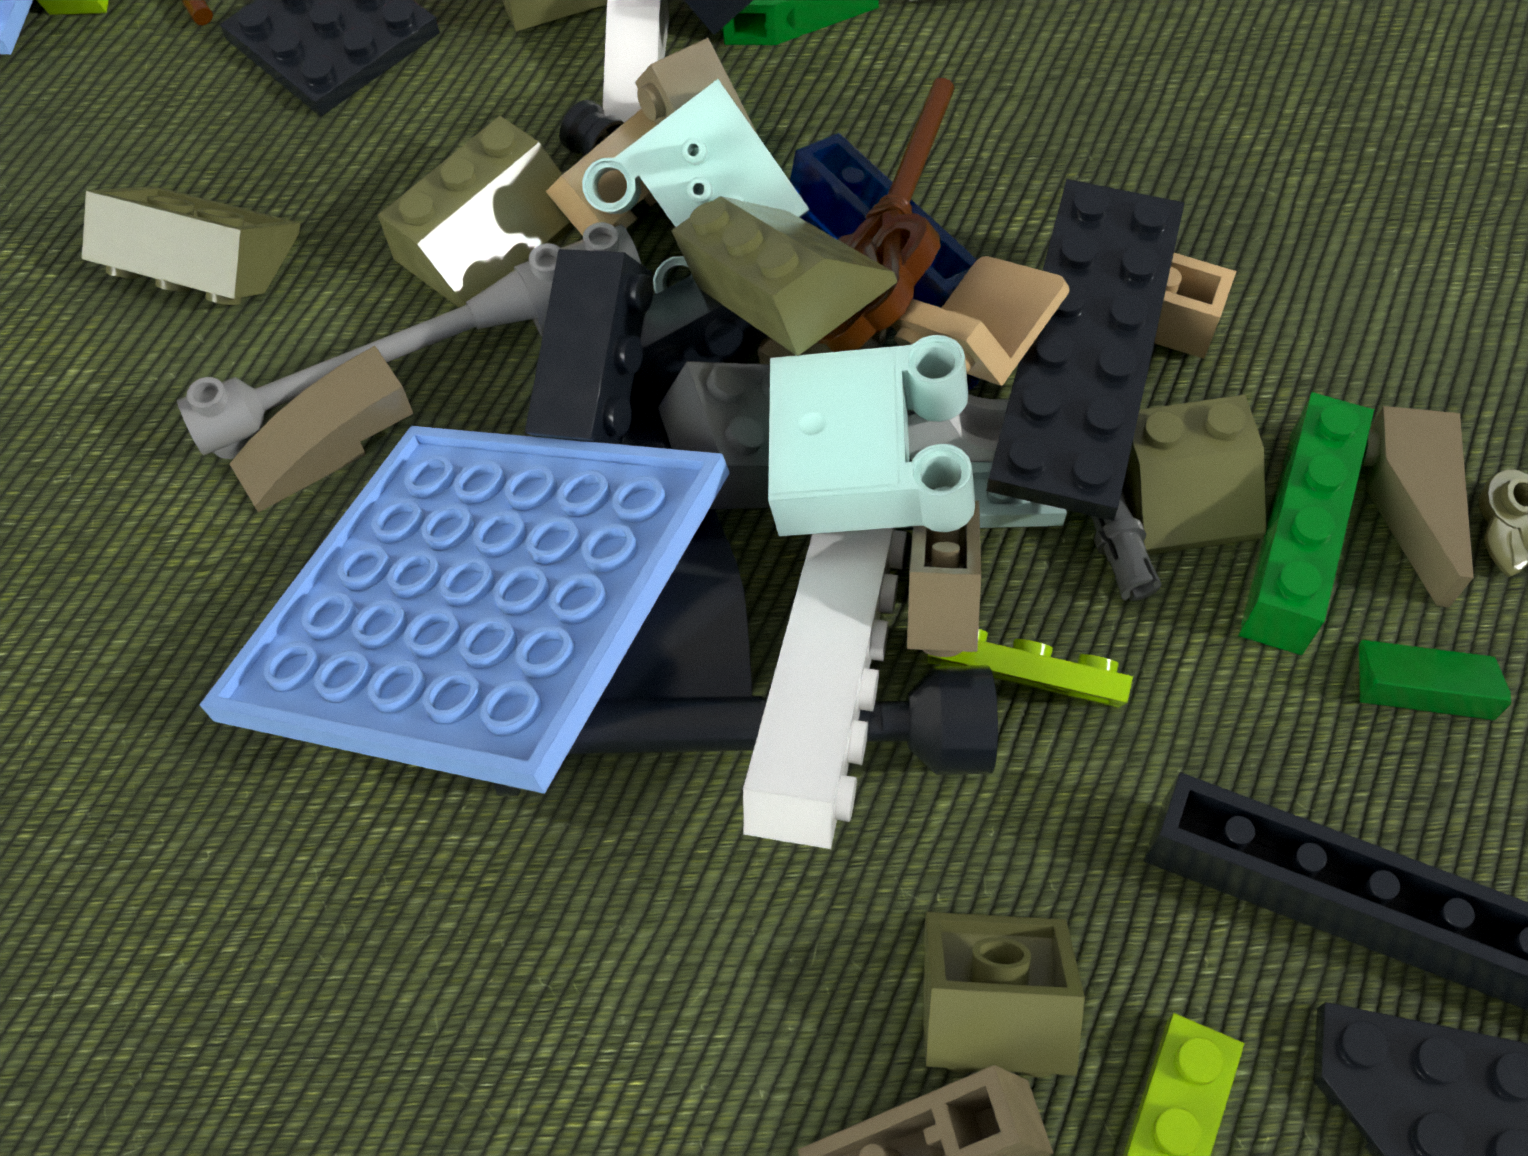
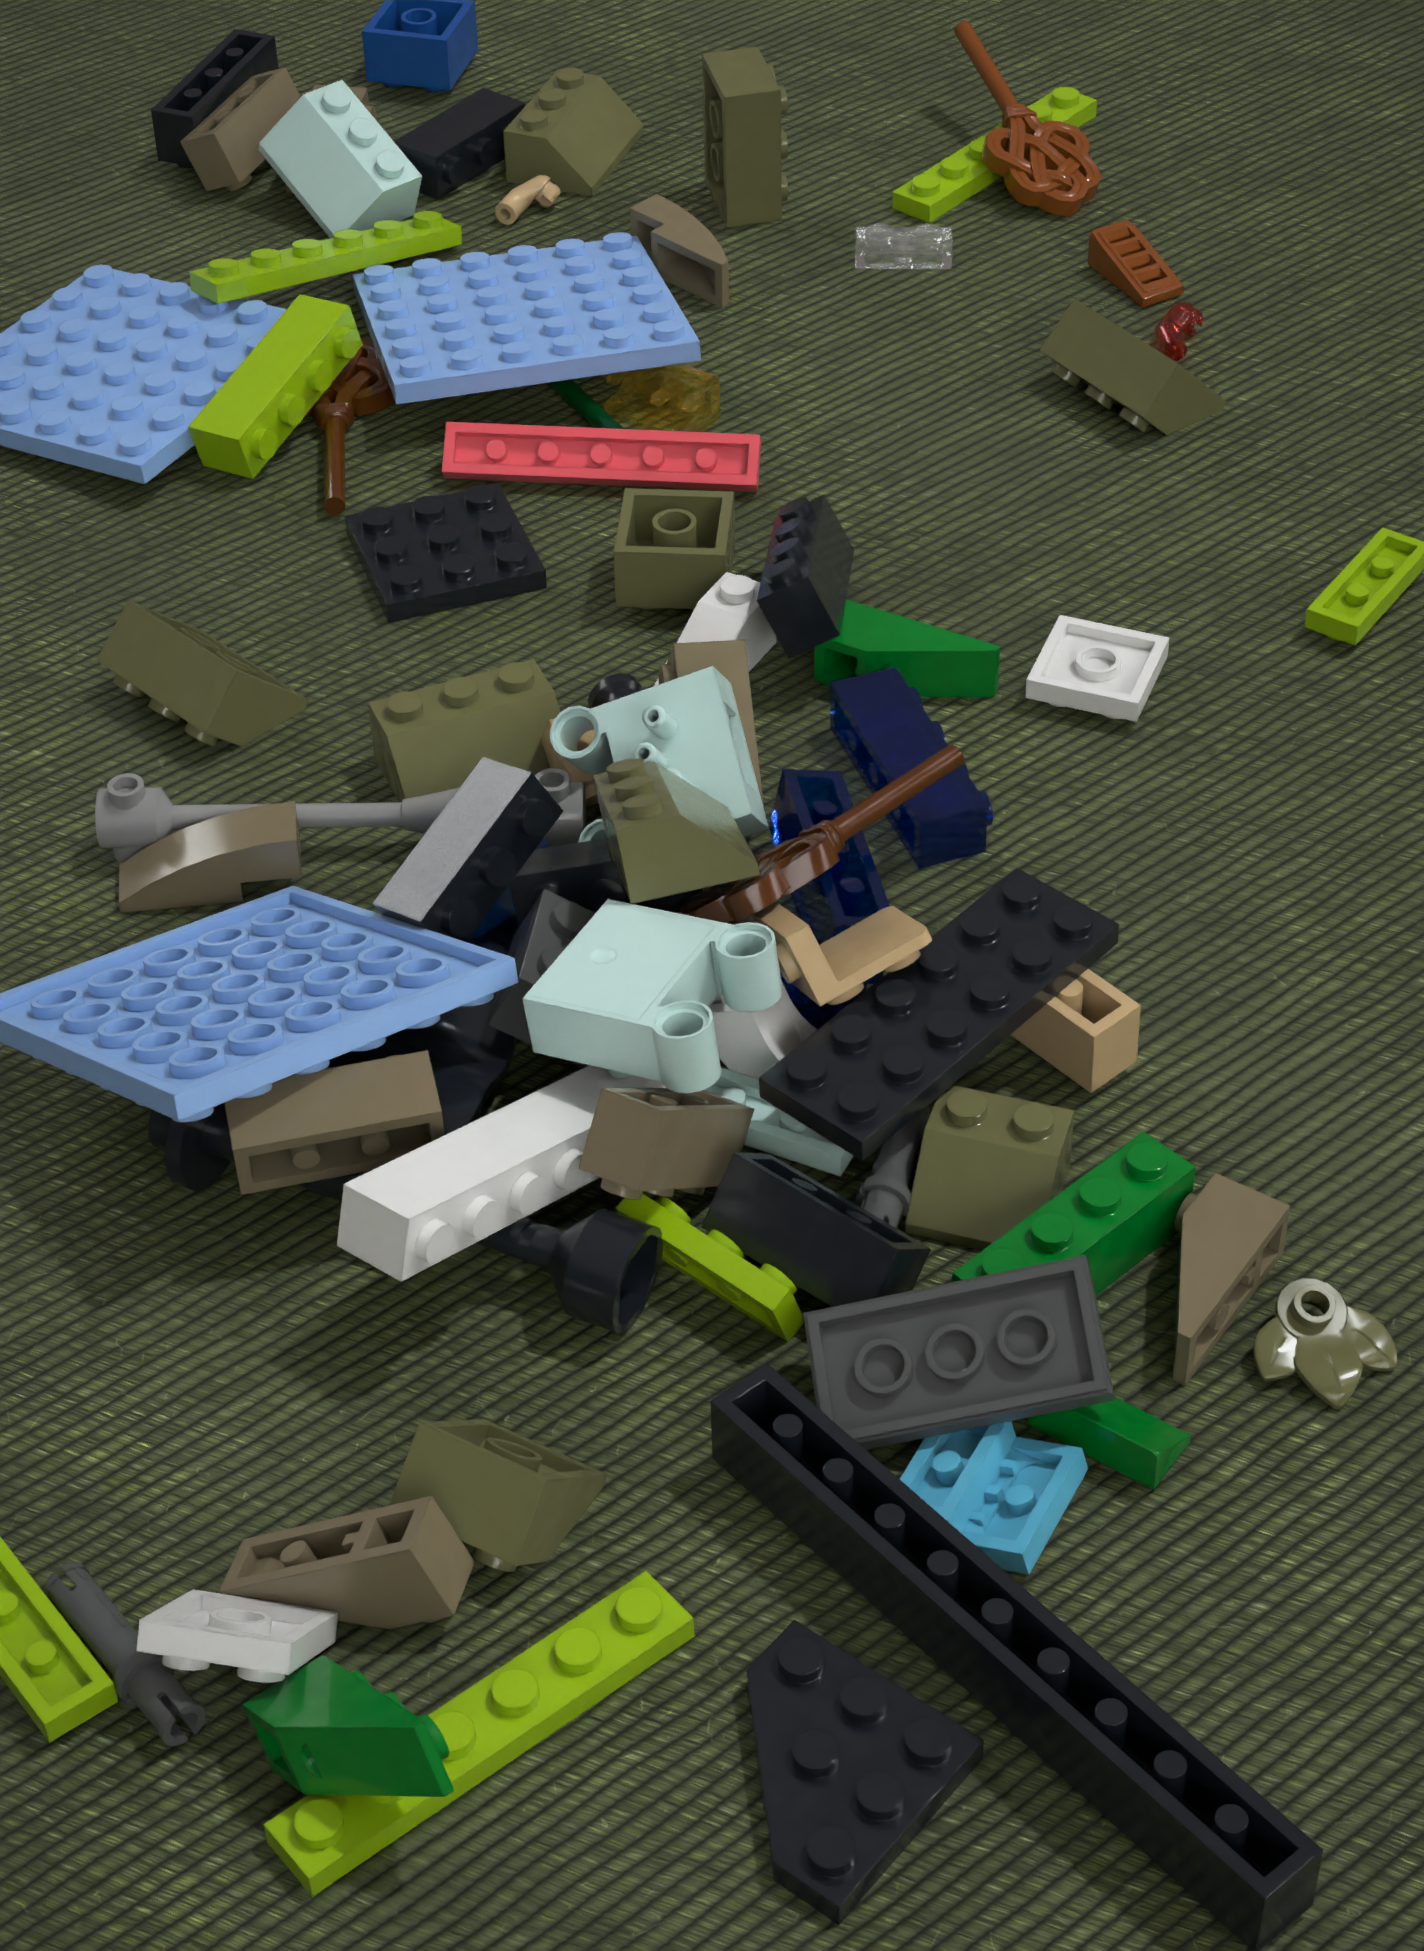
camera: 25 degrees right, 20 degrees down
(663, 689) = (334, 1122): none -> dark tan brick
(861, 97) = (887, 735): none -> clear blue brick
(1110, 609) = (811, 1233): none -> black brick
(1310, 679) = (961, 1354): none -> dark grey tile
(1382, 782) = (998, 1488): none -> medium azure slope

